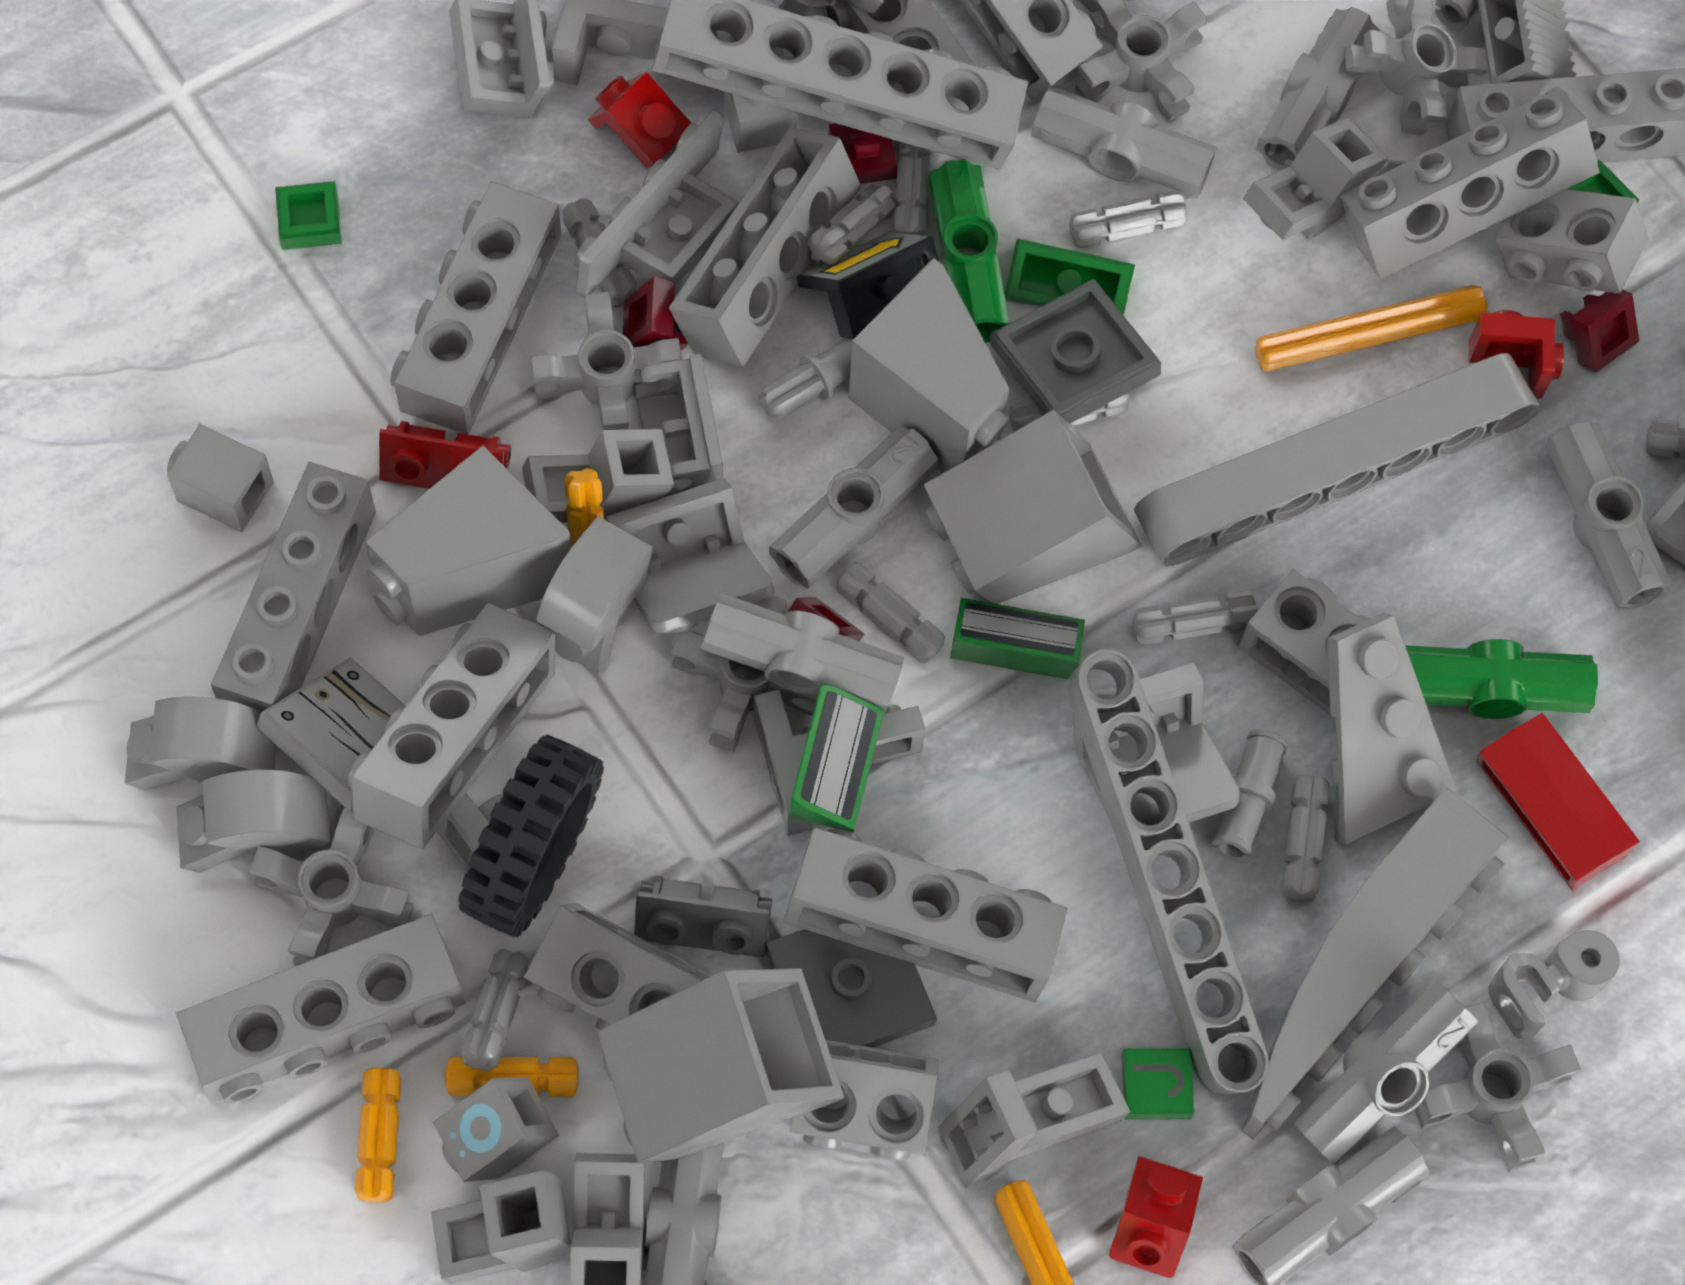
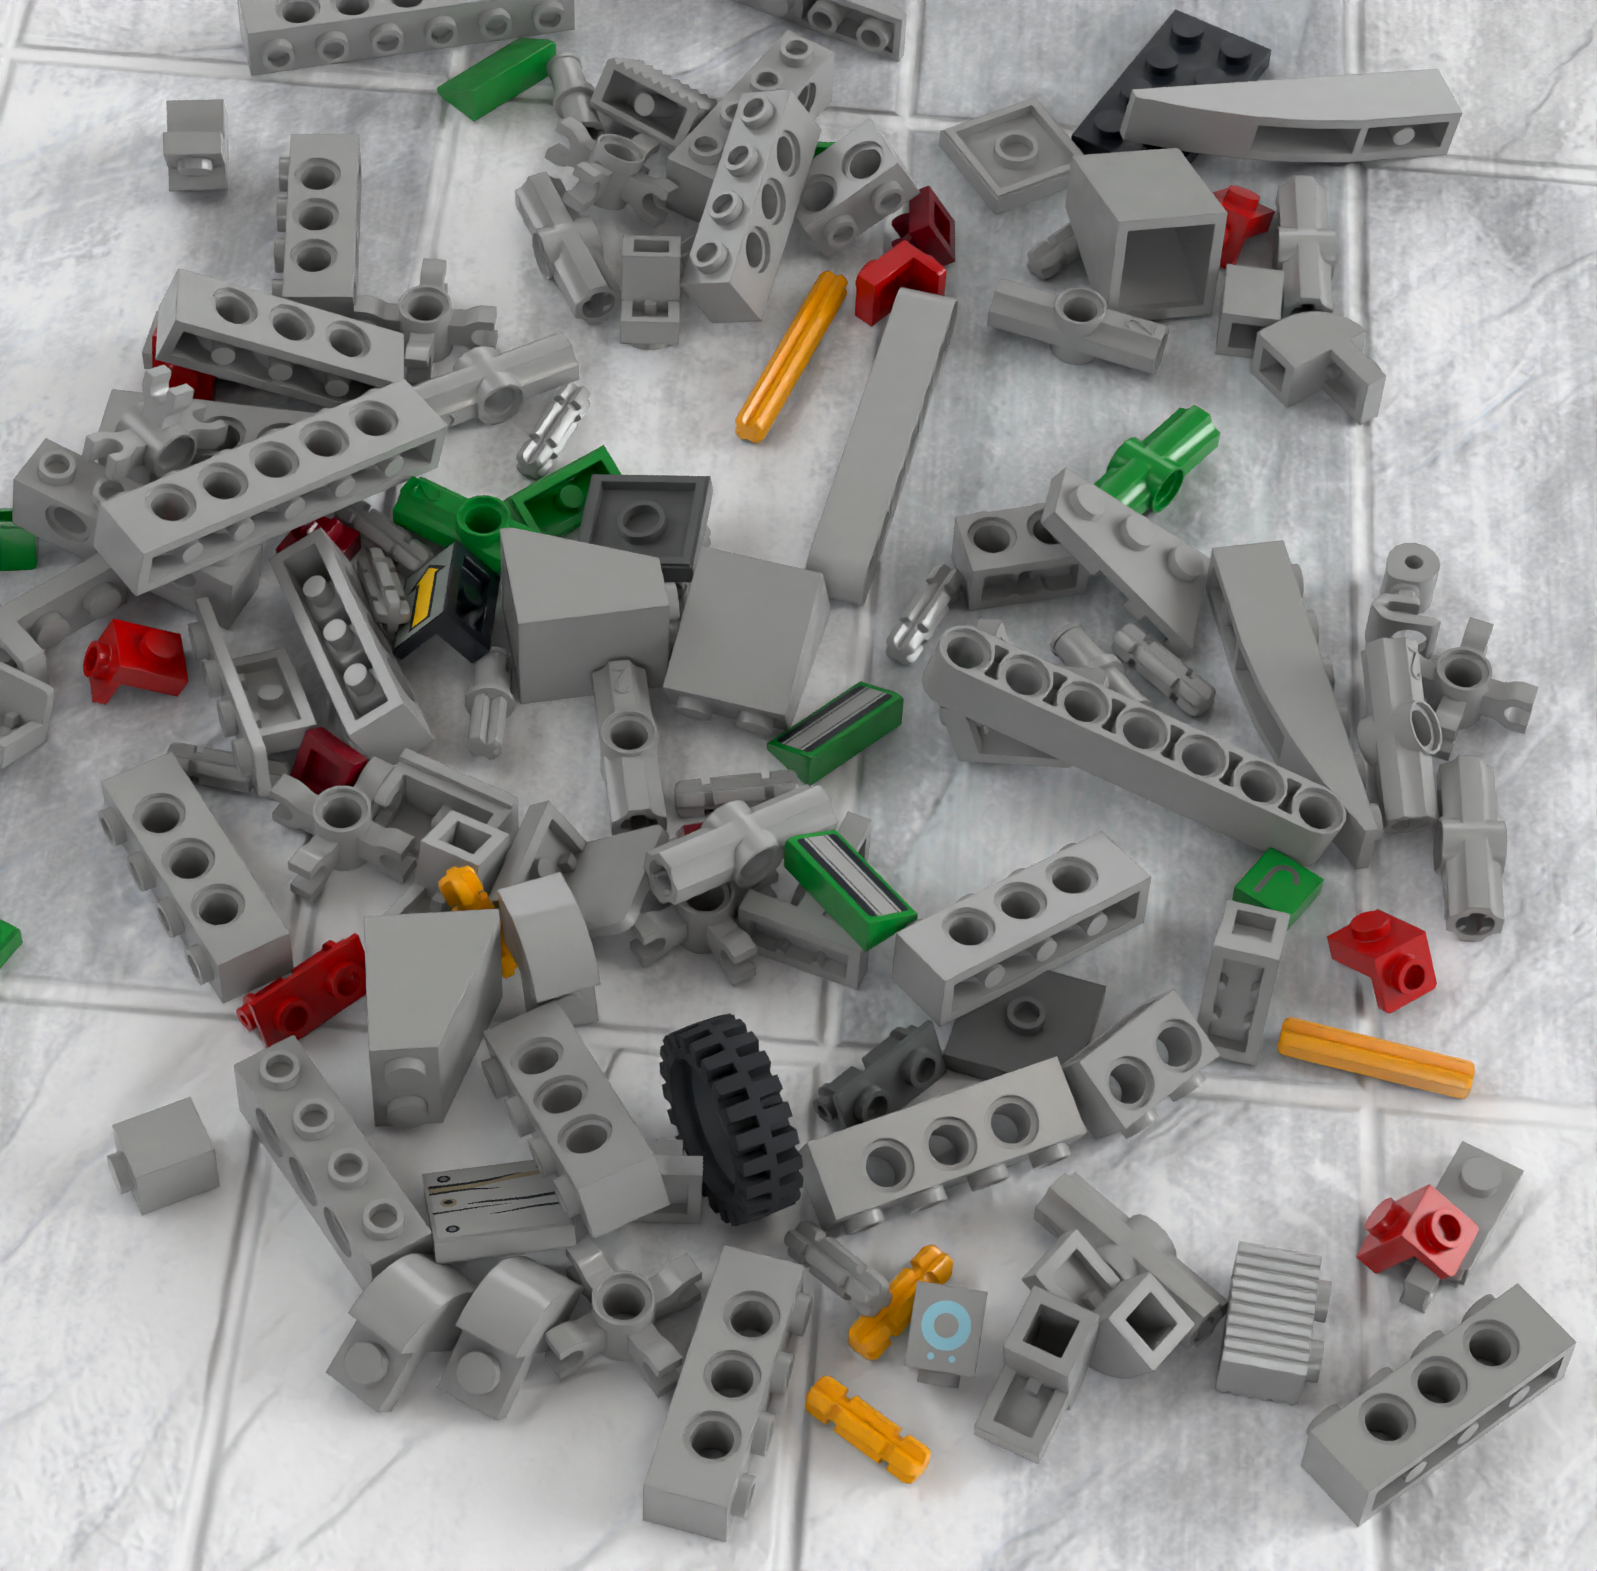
camera: 50 degrees left, 15 degrees down
(718, 1062) = (1044, 1118): light grey slope -> none
(1557, 801) = (1268, 507): red piece -> none

